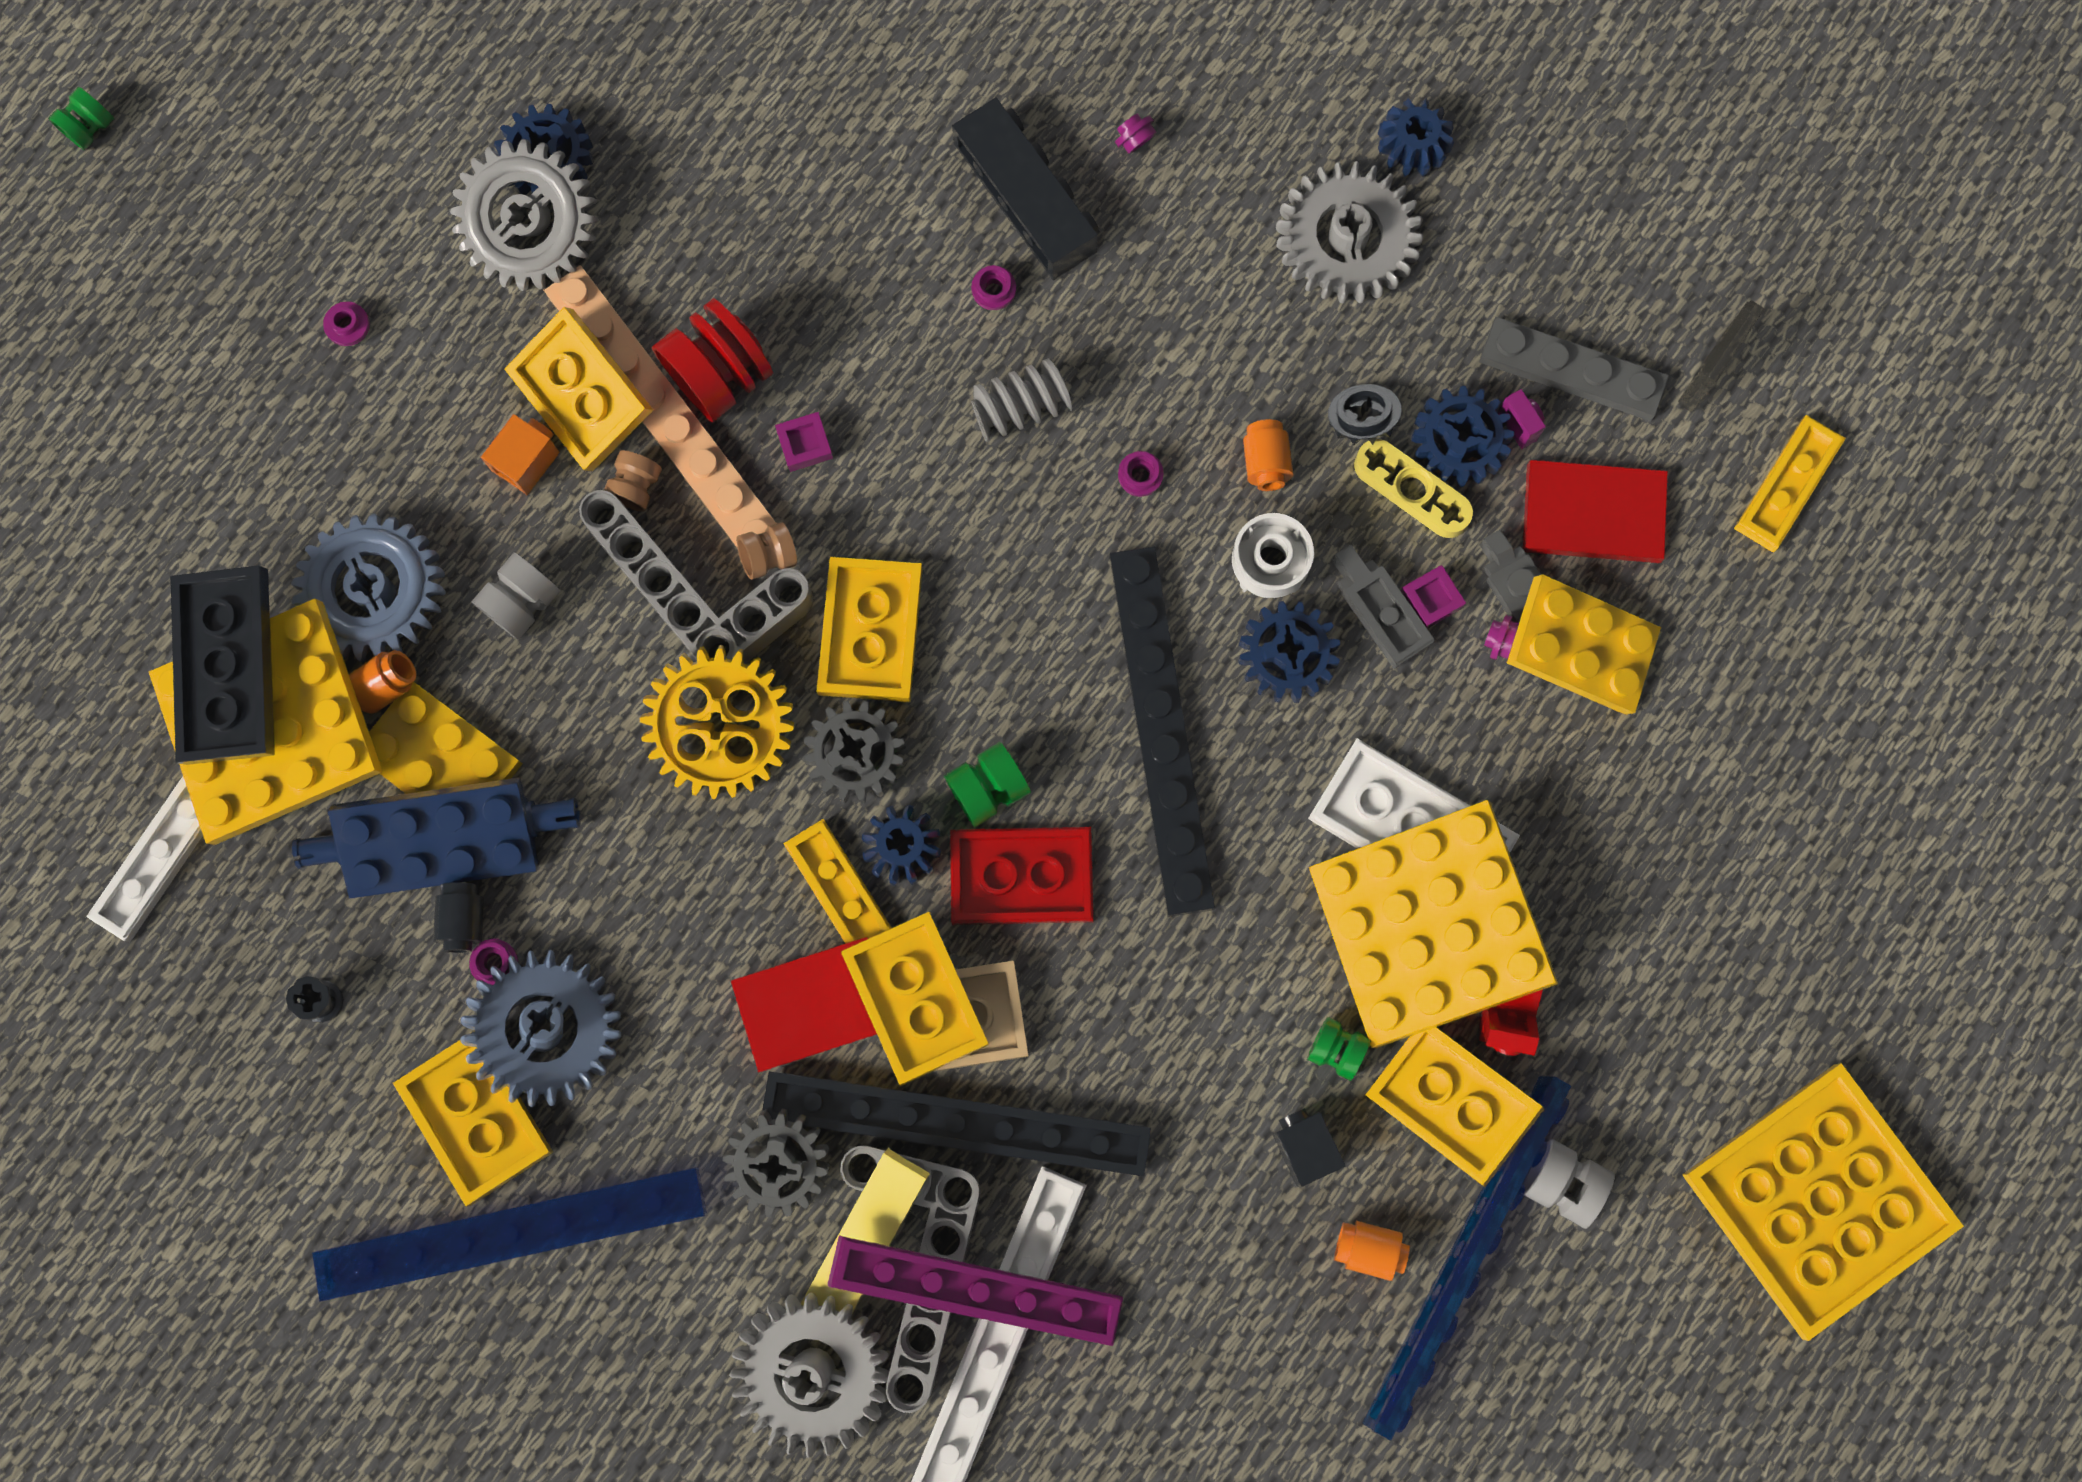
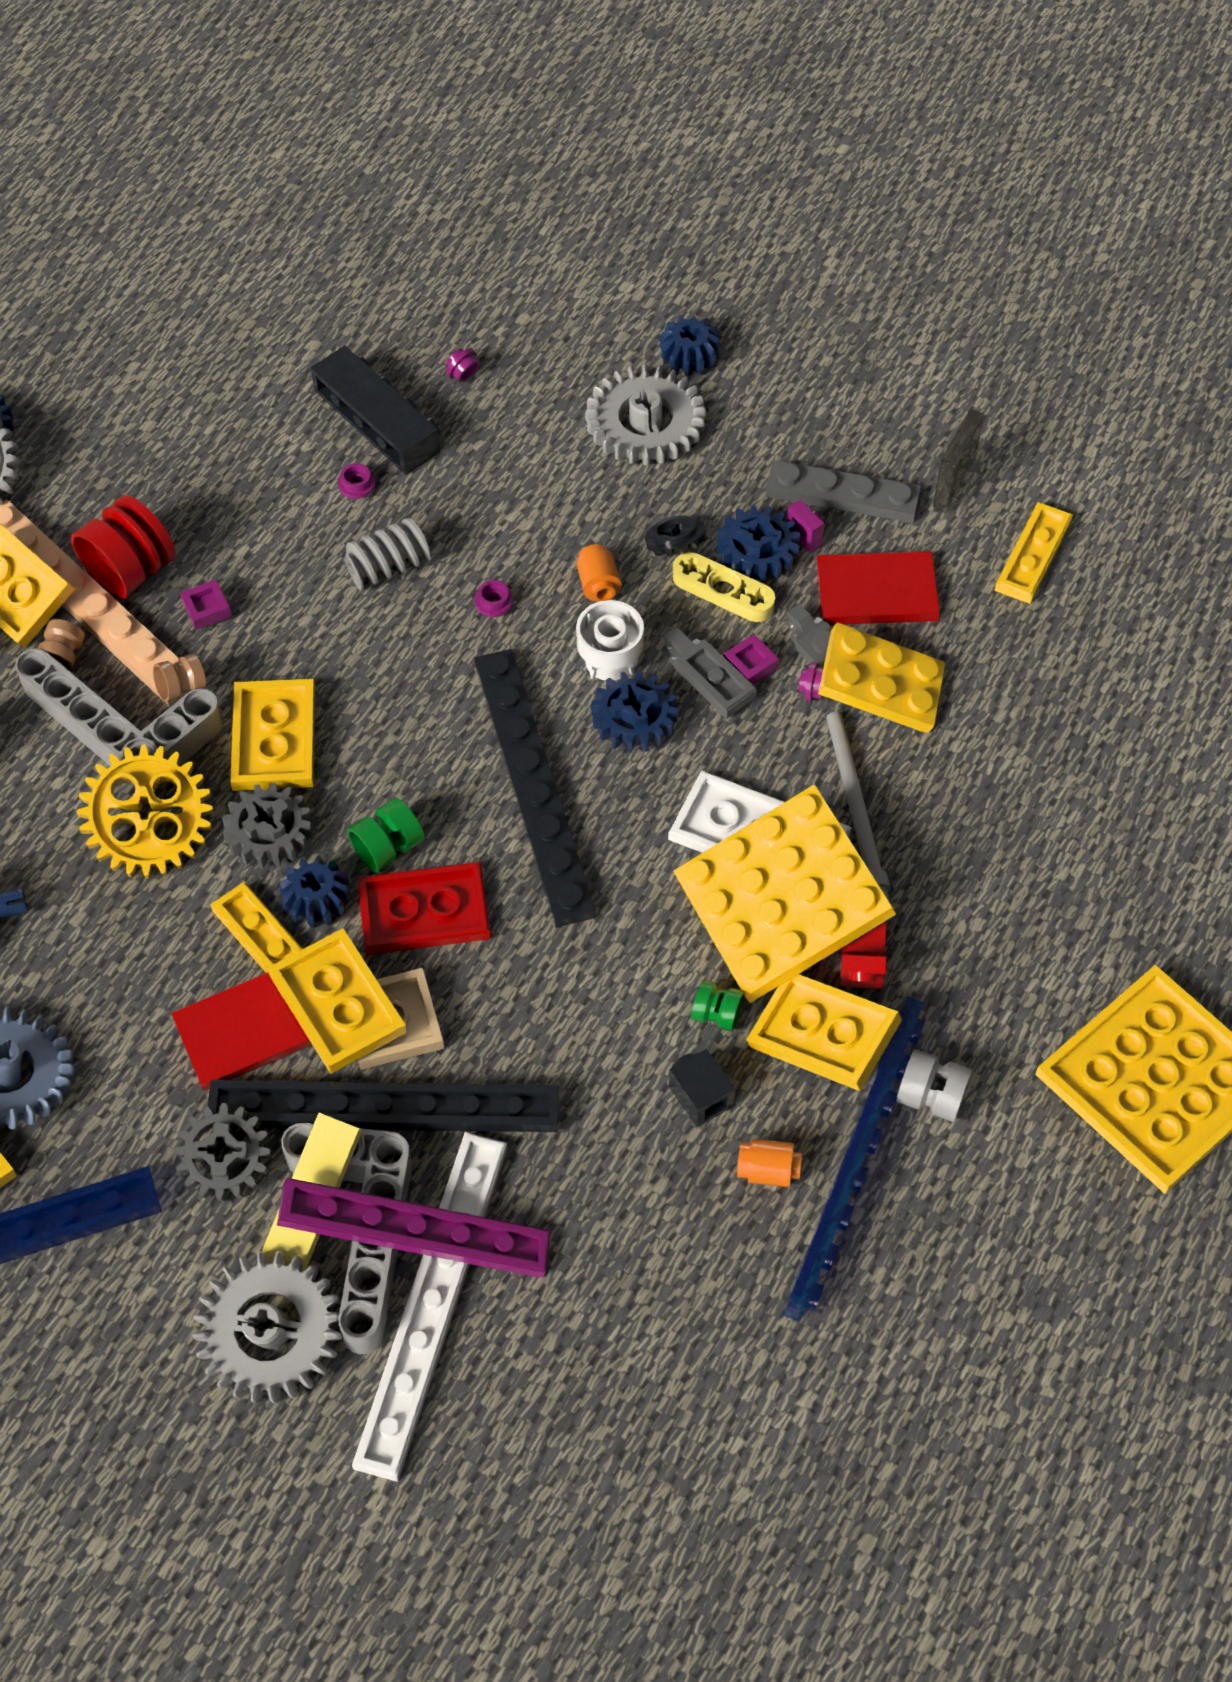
camera: 10 degrees left, 20 degrees down
(1530, 810) = (856, 802): none -> light grey bar

